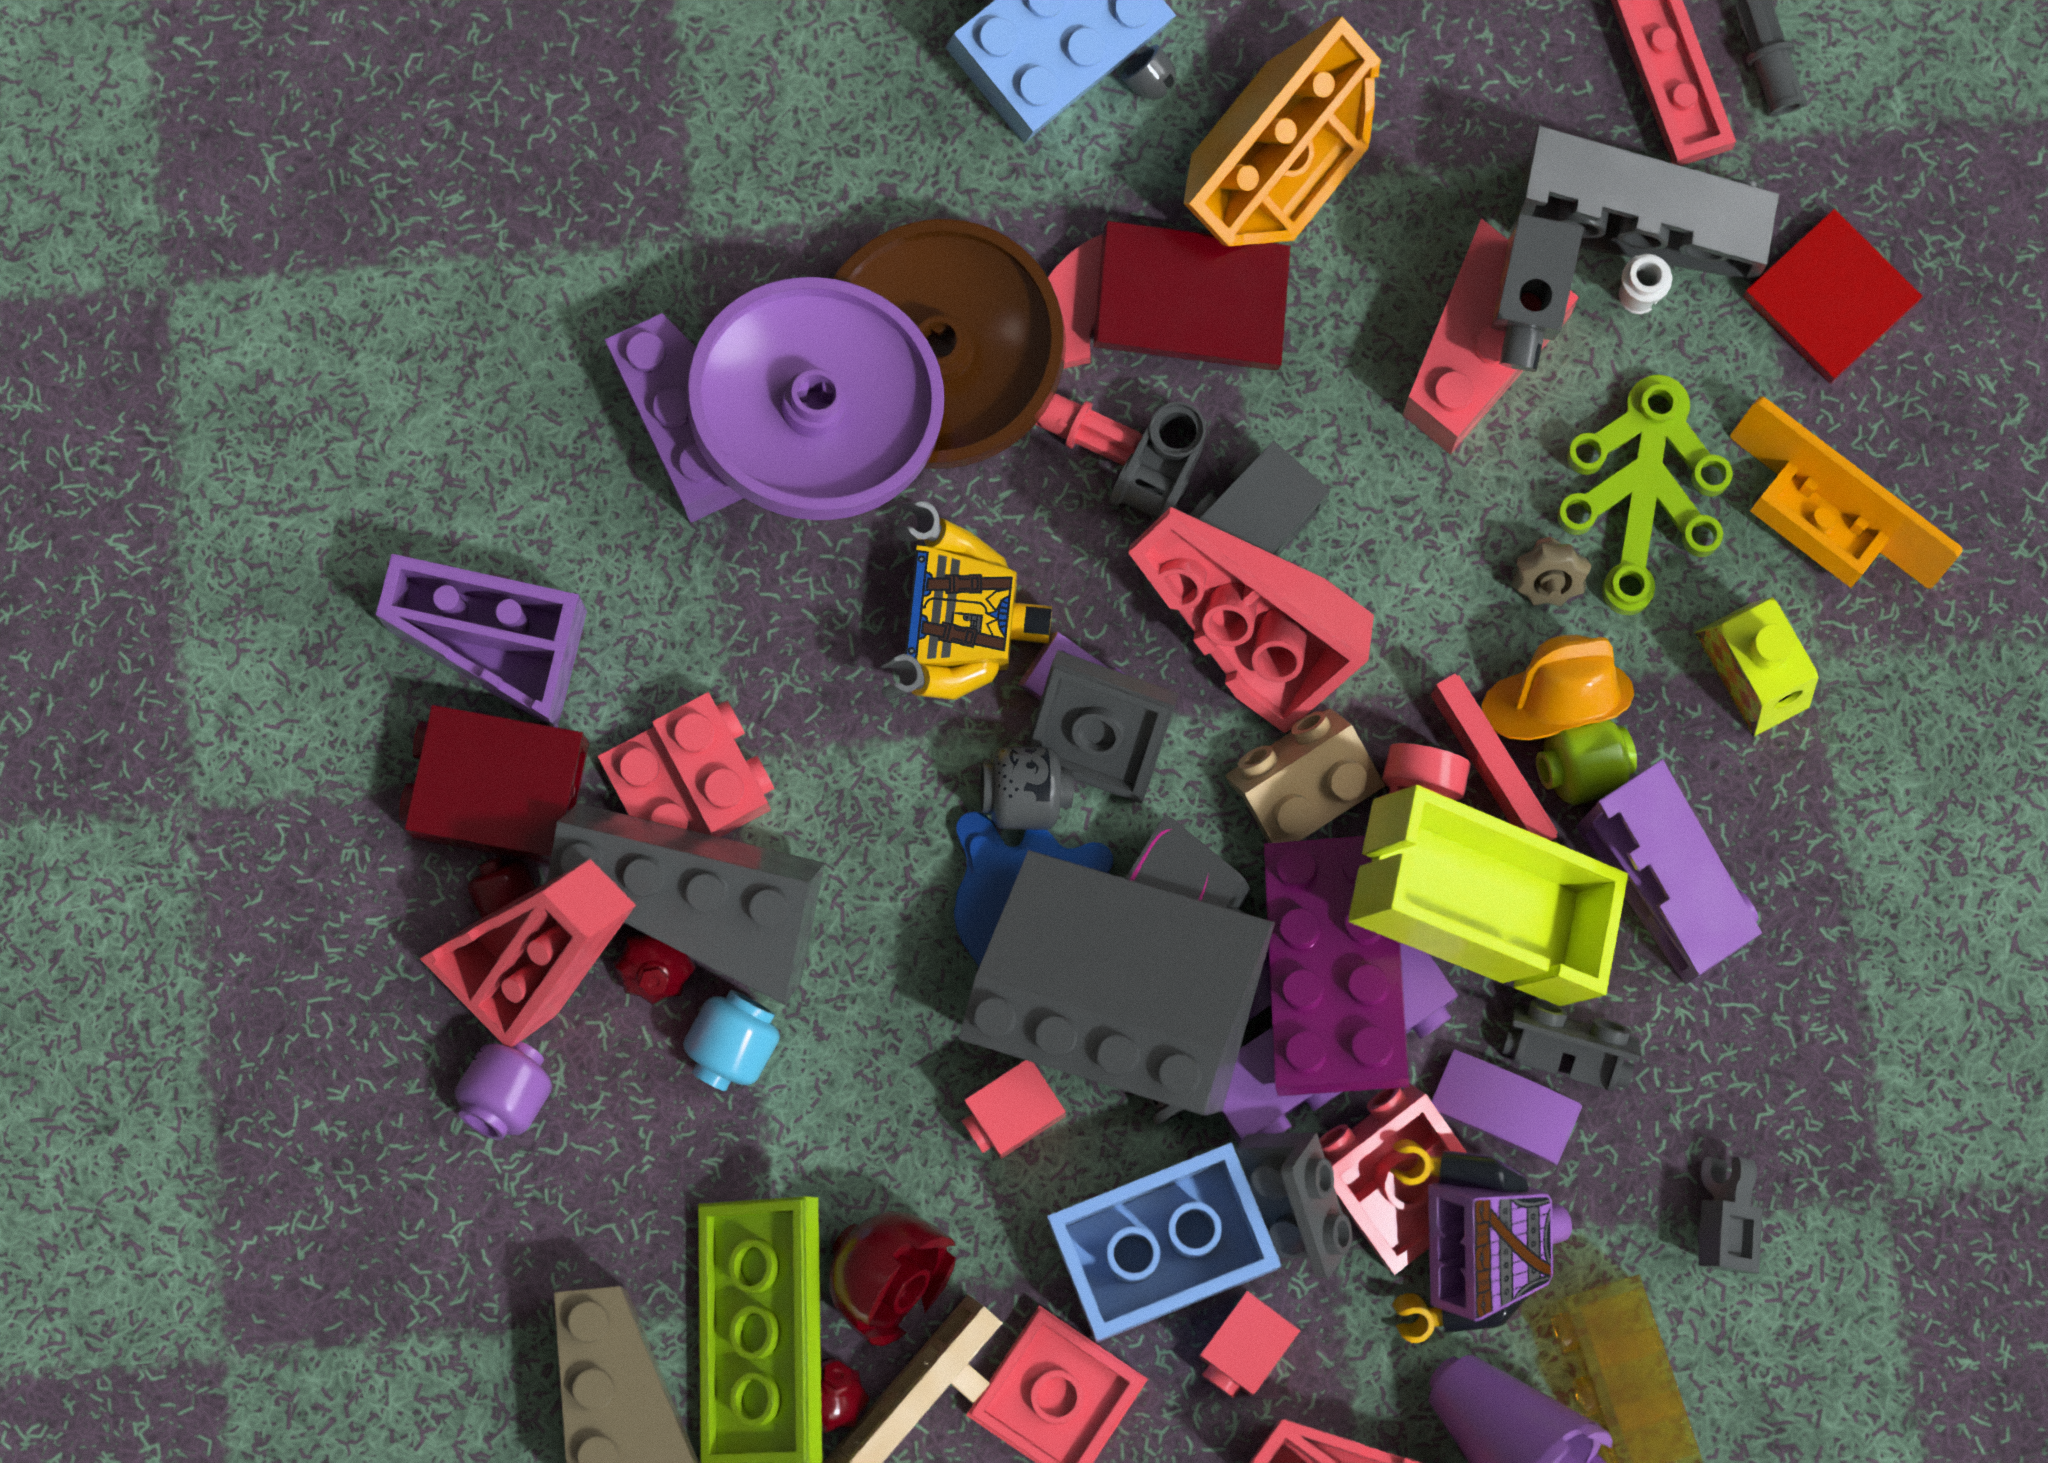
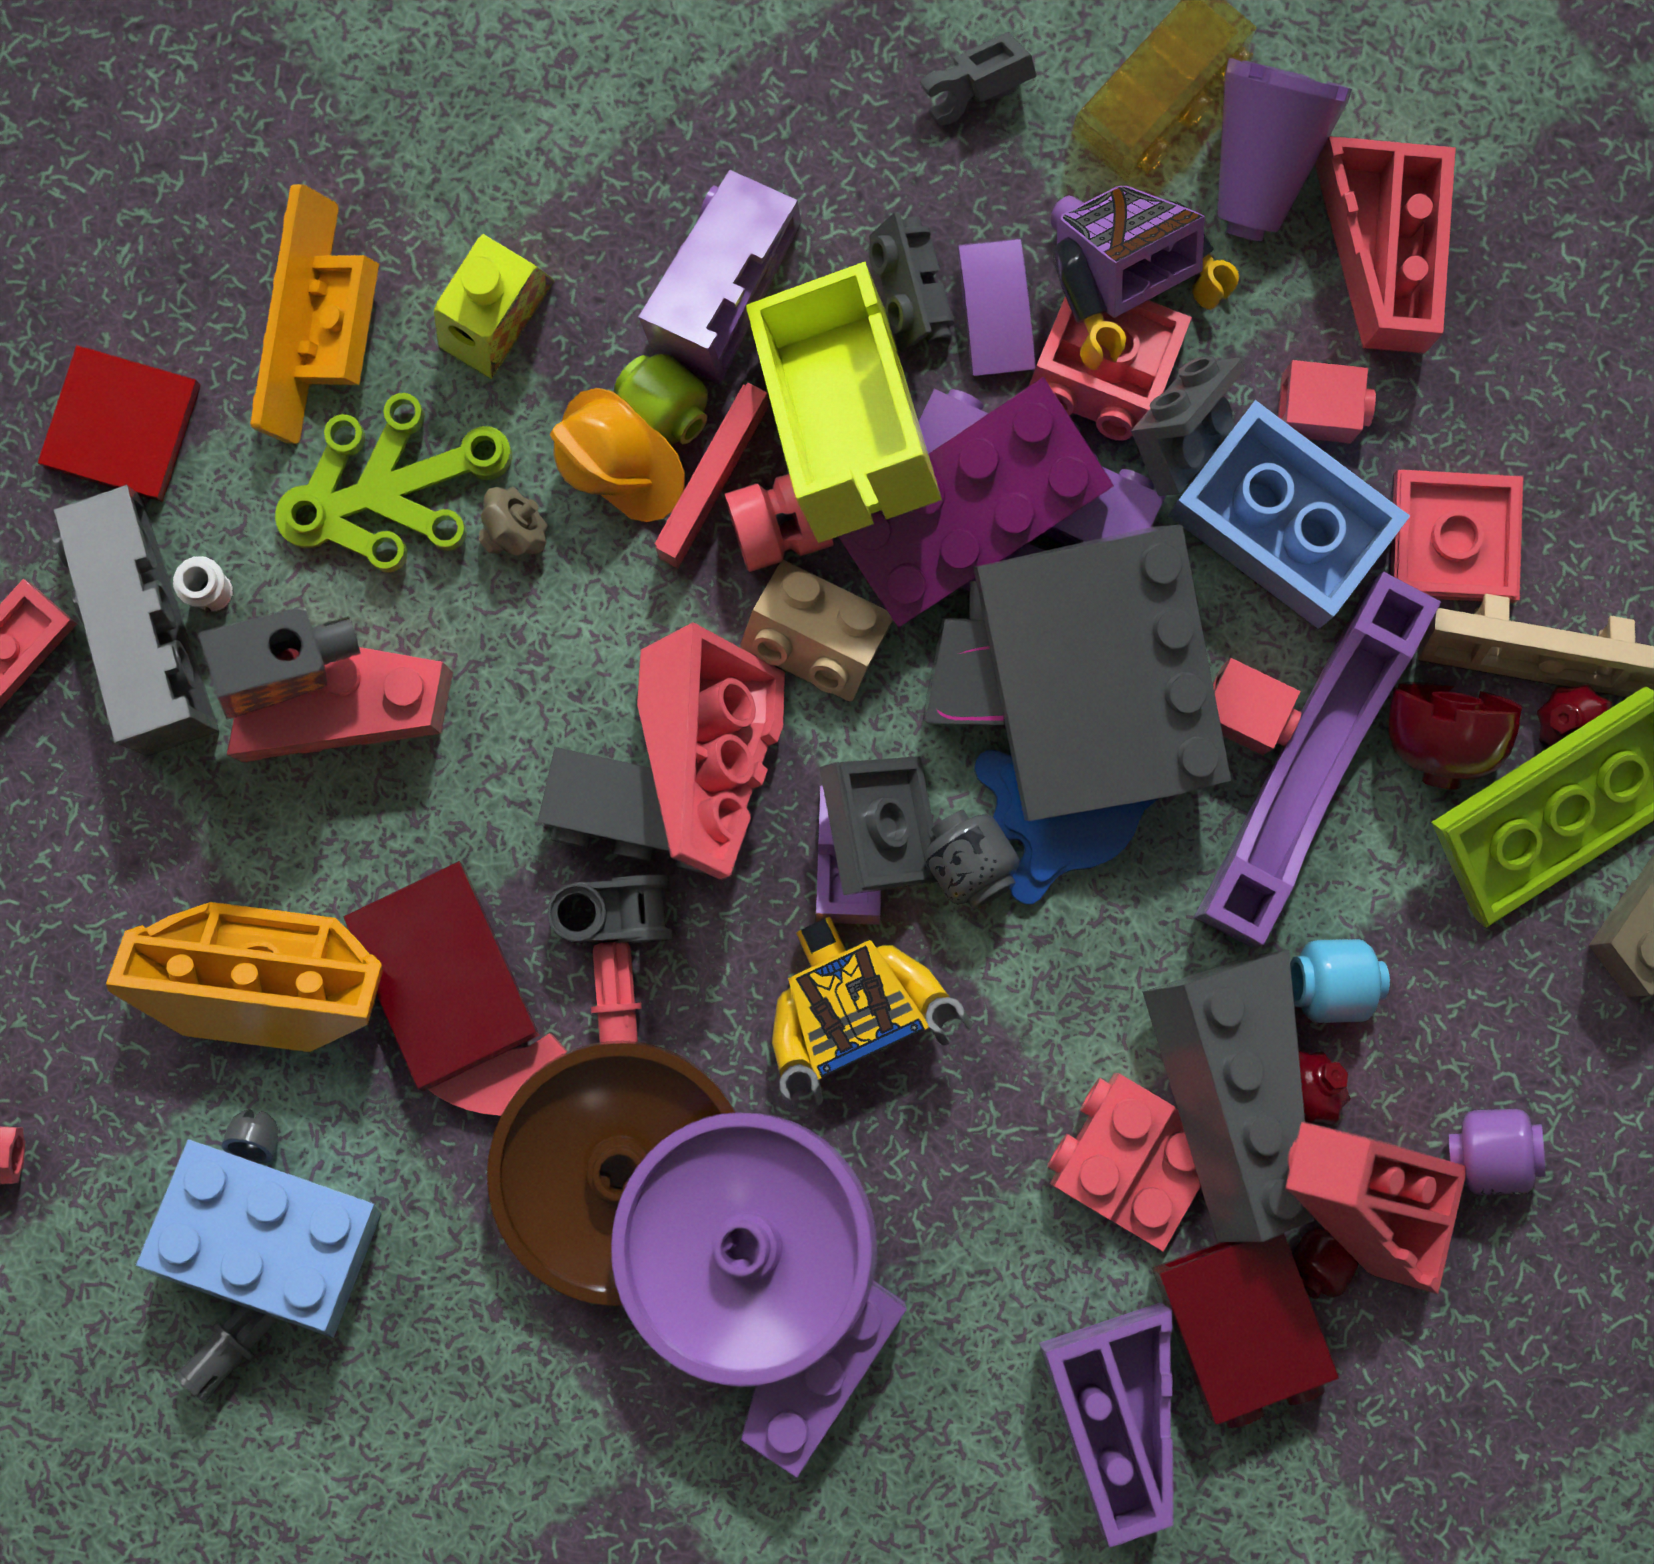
camera: 125 degrees left, 5 degrees up
(931, 1135) = (1305, 775): none -> medium lavender arch

